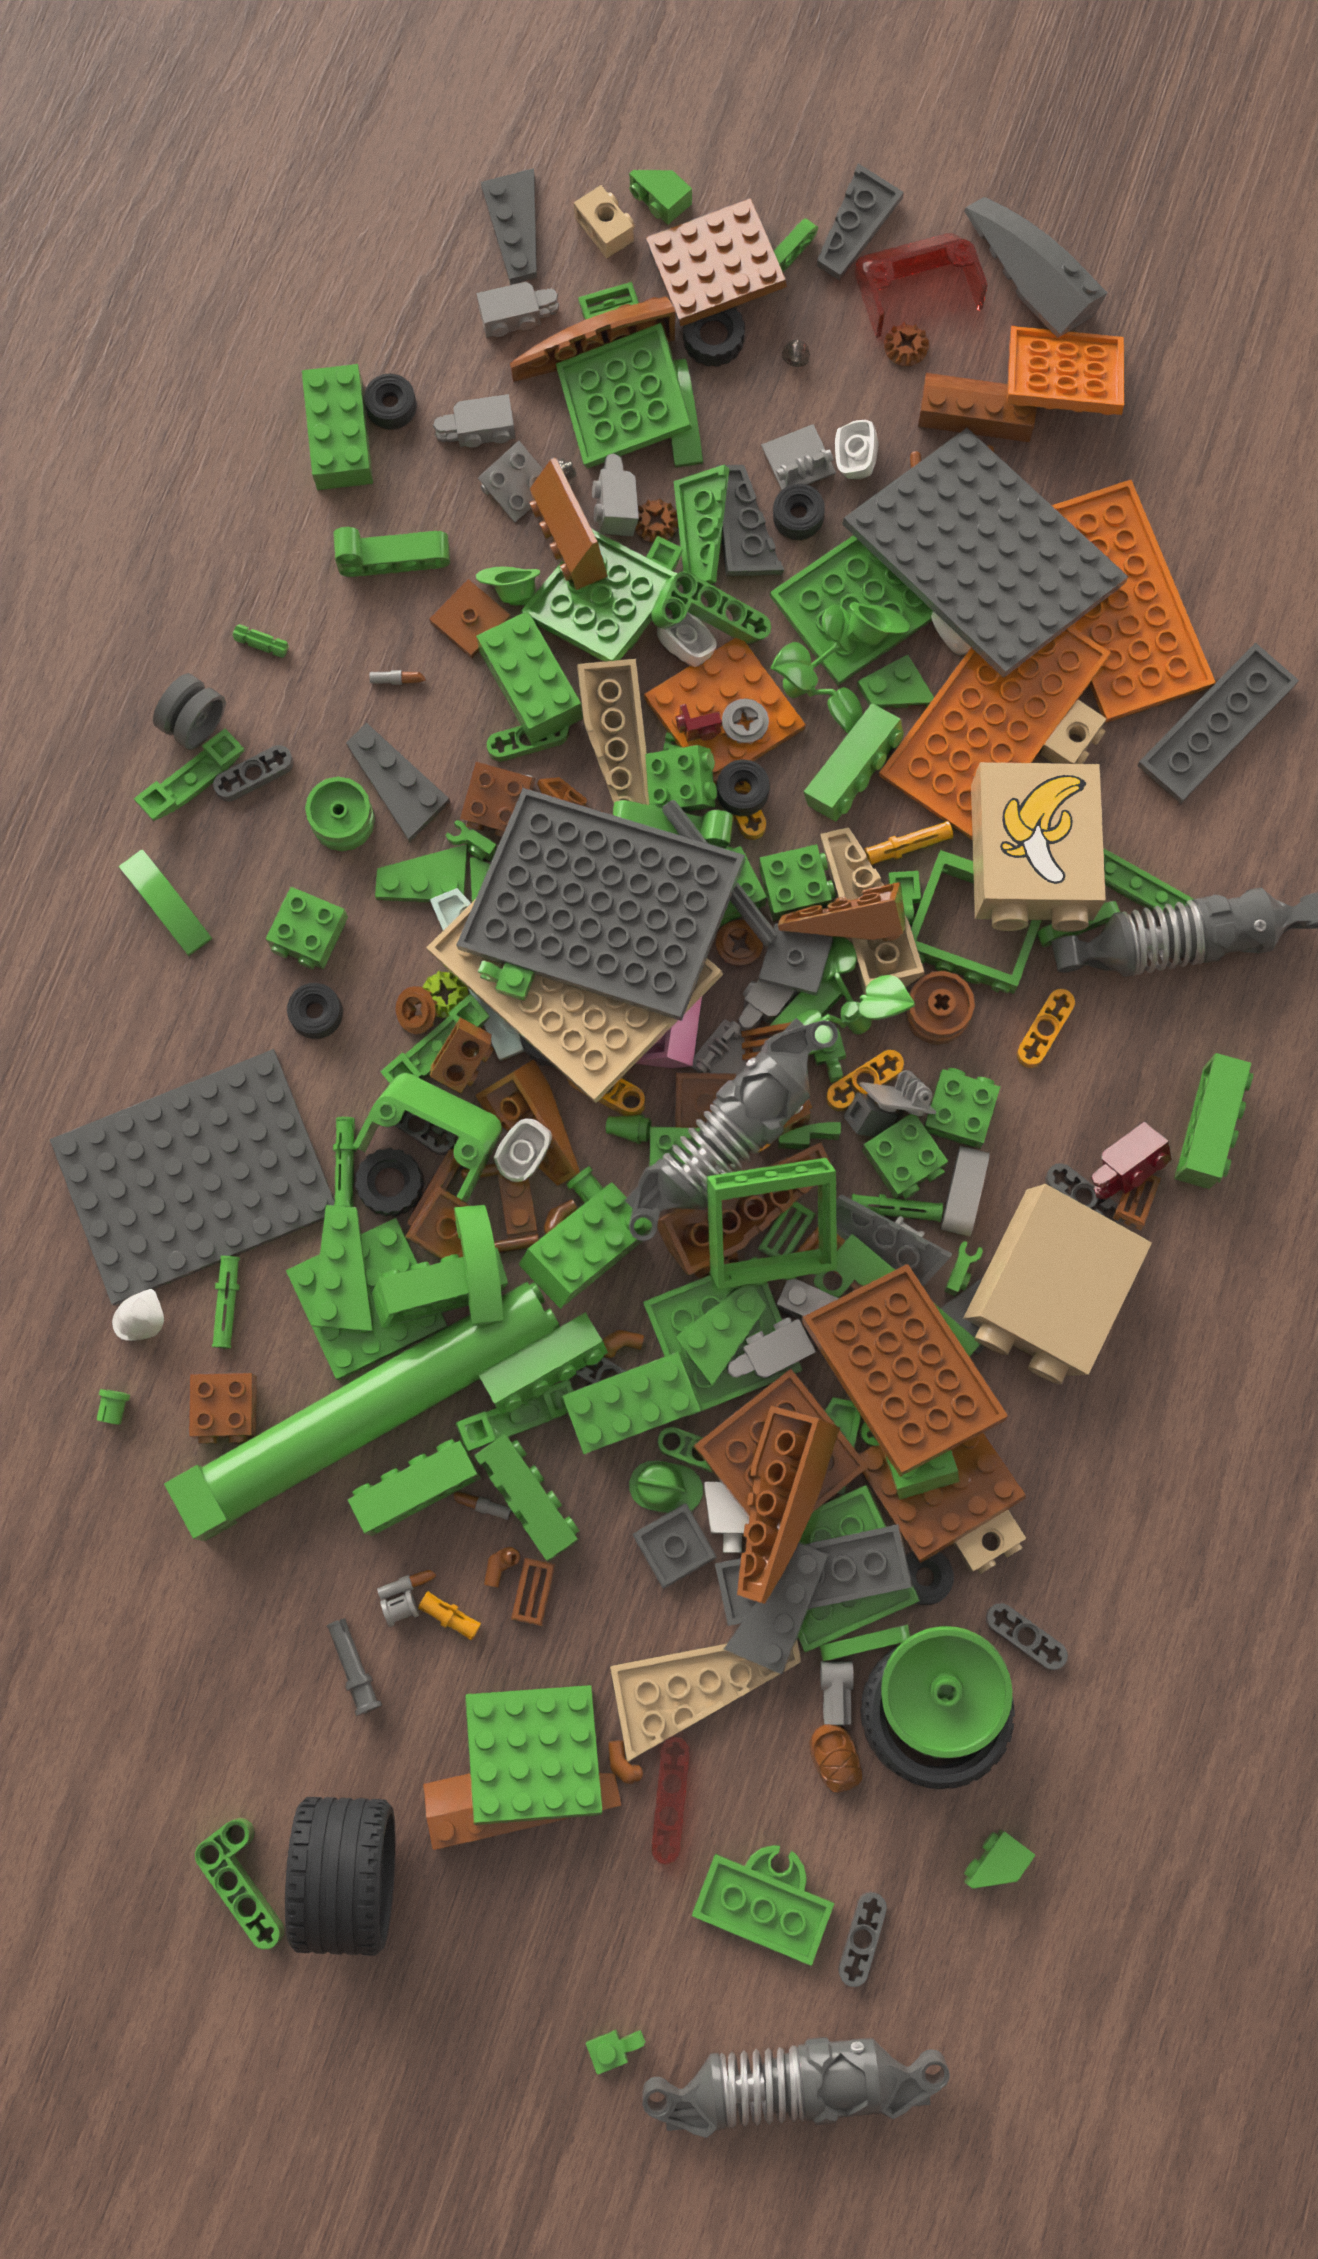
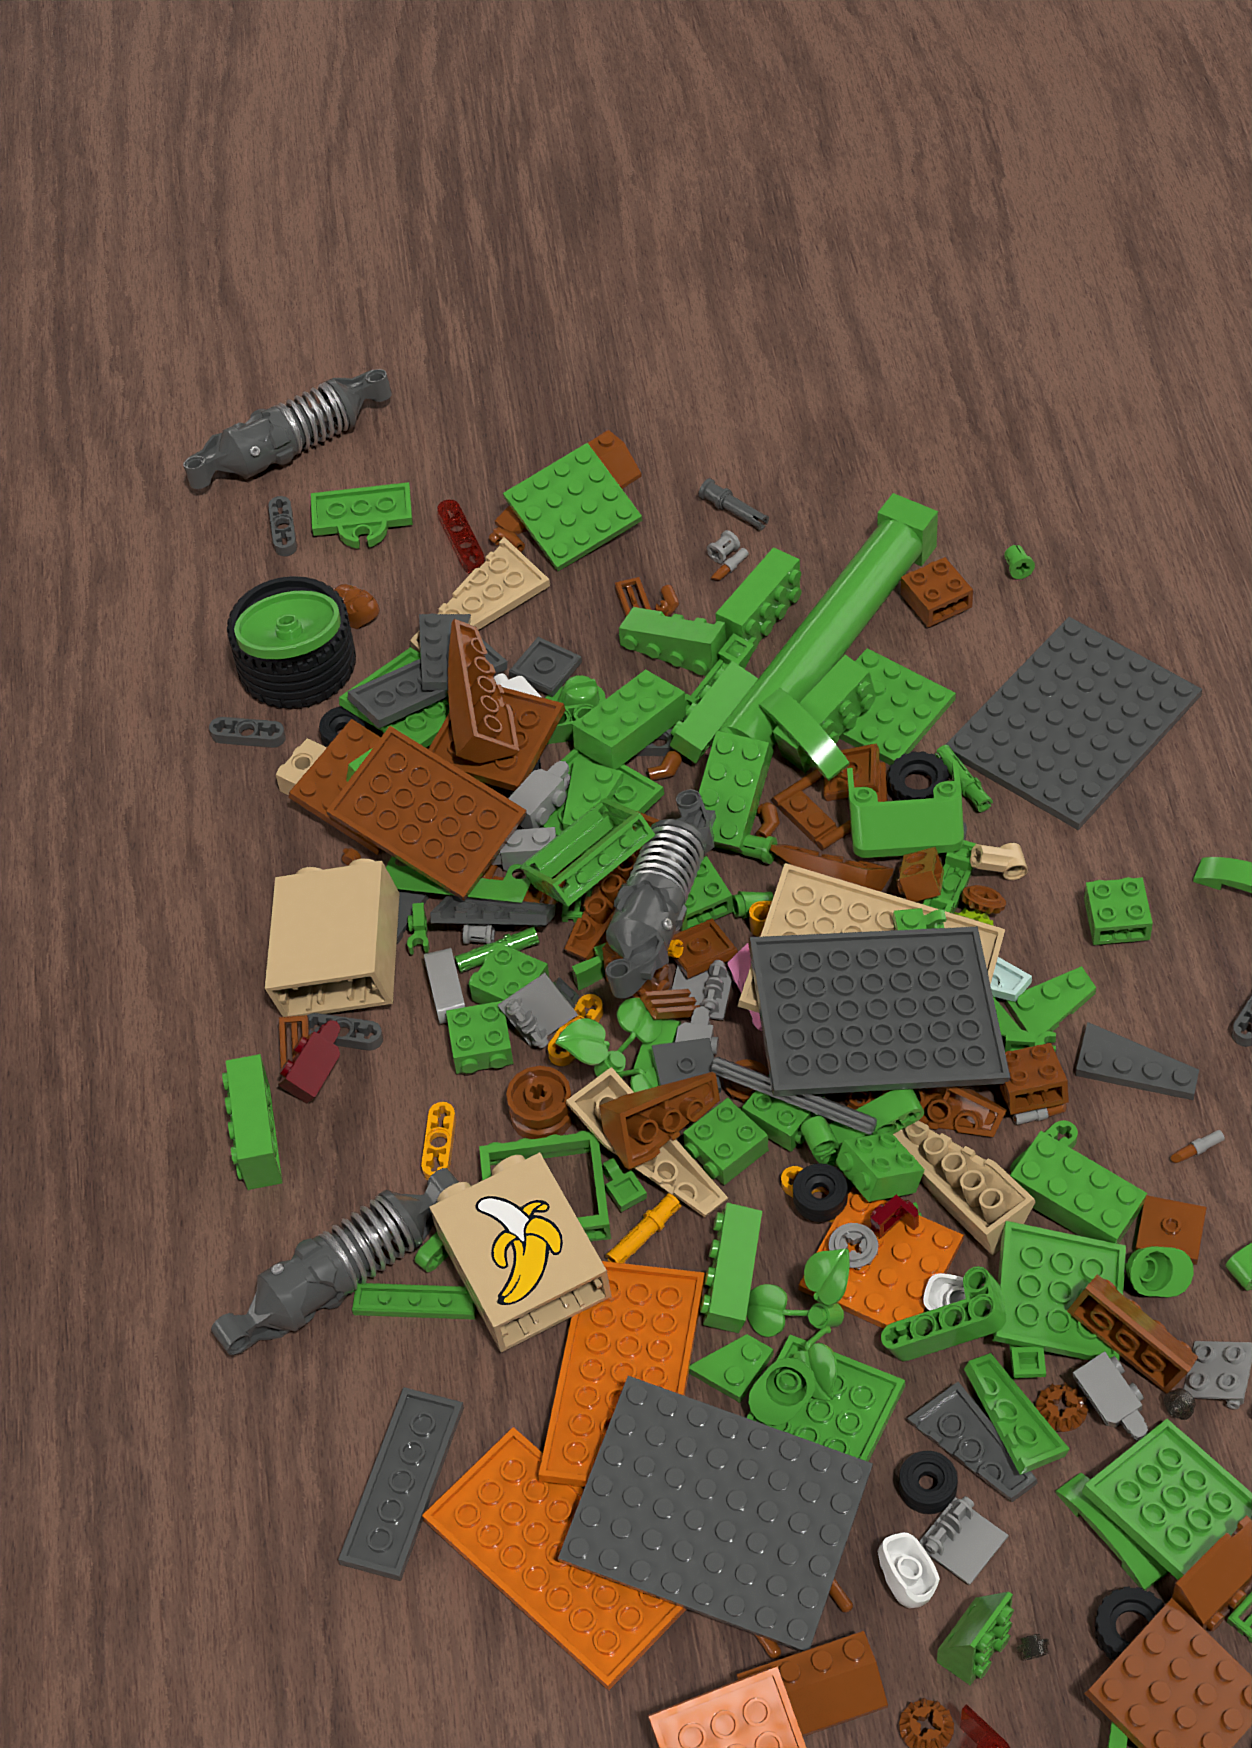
camera: 155 degrees right, 25 degrees down
(138, 1317) = (1042, 607): white piece -> none
(228, 1265) = (990, 662): bright green pin -> none
(245, 1887) = (728, 369): bright green beam -> none
(314, 994) = (1062, 877): black tyre -> none
(338, 797) = (1157, 1003): bright green wheel -> none
(340, 1876) = (658, 376): black tyre -> none
(341, 1279) = (910, 701): bright green wing -> none
(370, 1041) = (1006, 859): none -> tan piece
(449, 1615) = (682, 560): light orange pin -> none
(522, 1150) = (823, 832): white piece -> none
(610, 2050) = (423, 405): bright green plate -> none
(830, 1057) = (616, 1034): bright green plate -> none
(836, 1683) = (375, 641): light grey piece -> none
(838, 363) = (977, 1637): none -> bright green slope
(864, 1643) = (359, 672): bright green beam -> none
(1000, 1863) = (203, 599): bright green slope -> none
(1079, 721) = (539, 1378): tan brick -> none

